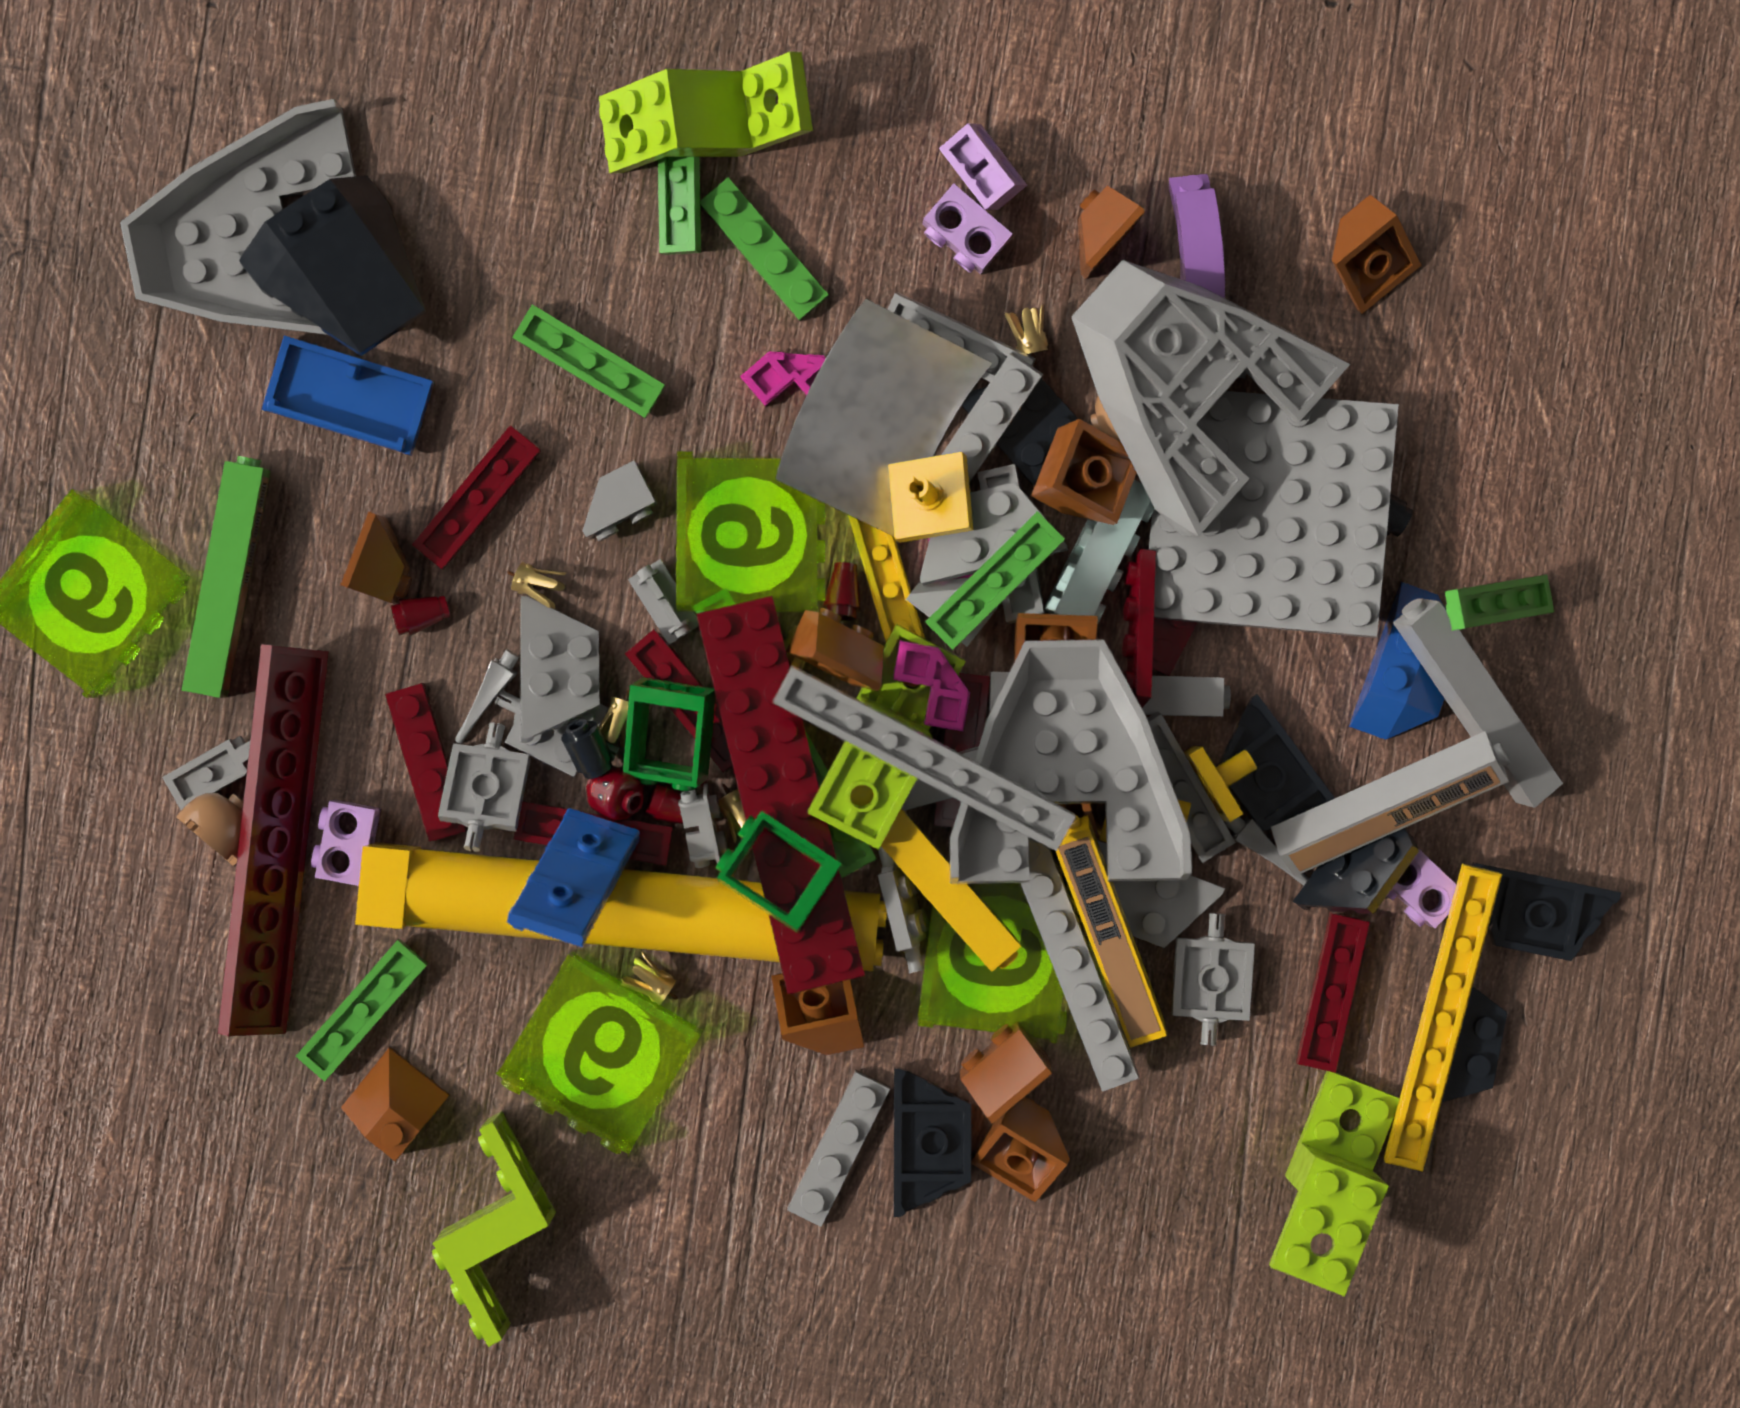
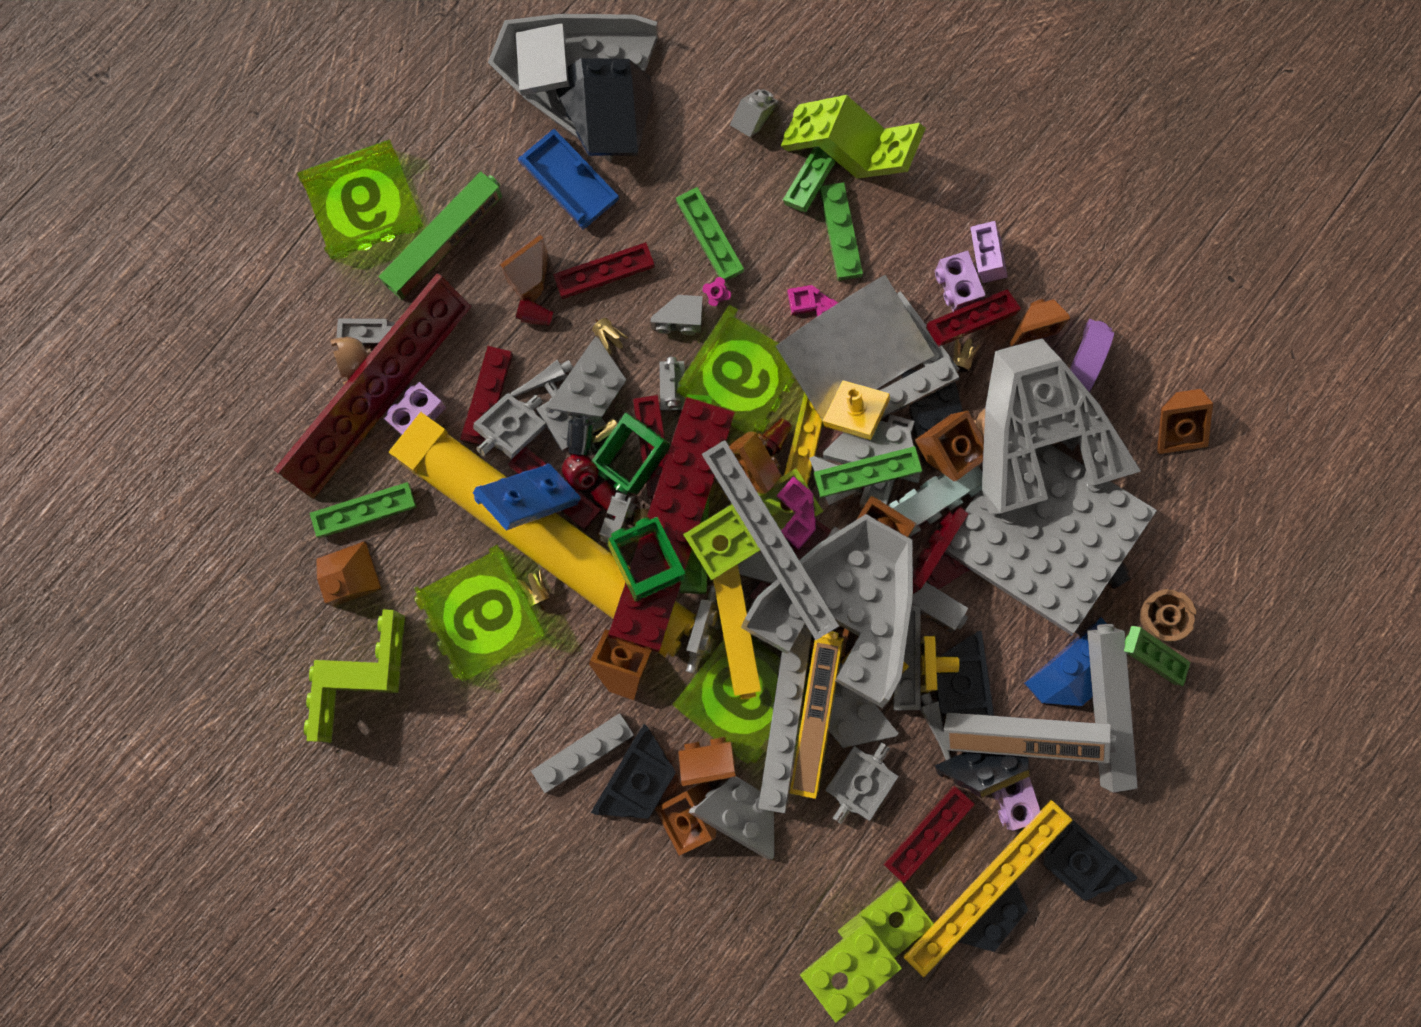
camera: 30 degrees right, 10 degrees down
(209, 250) = (542, 59): none -> tile
(545, 147) = (753, 112): none -> light grey slope
(646, 426) = (709, 289): none -> dark pink plate
(1013, 274) = (973, 318): none -> dark red plate
(1076, 1112) = (735, 812): none -> light grey wing
(1487, 520) = (1168, 615): none -> medium nougat cylinder

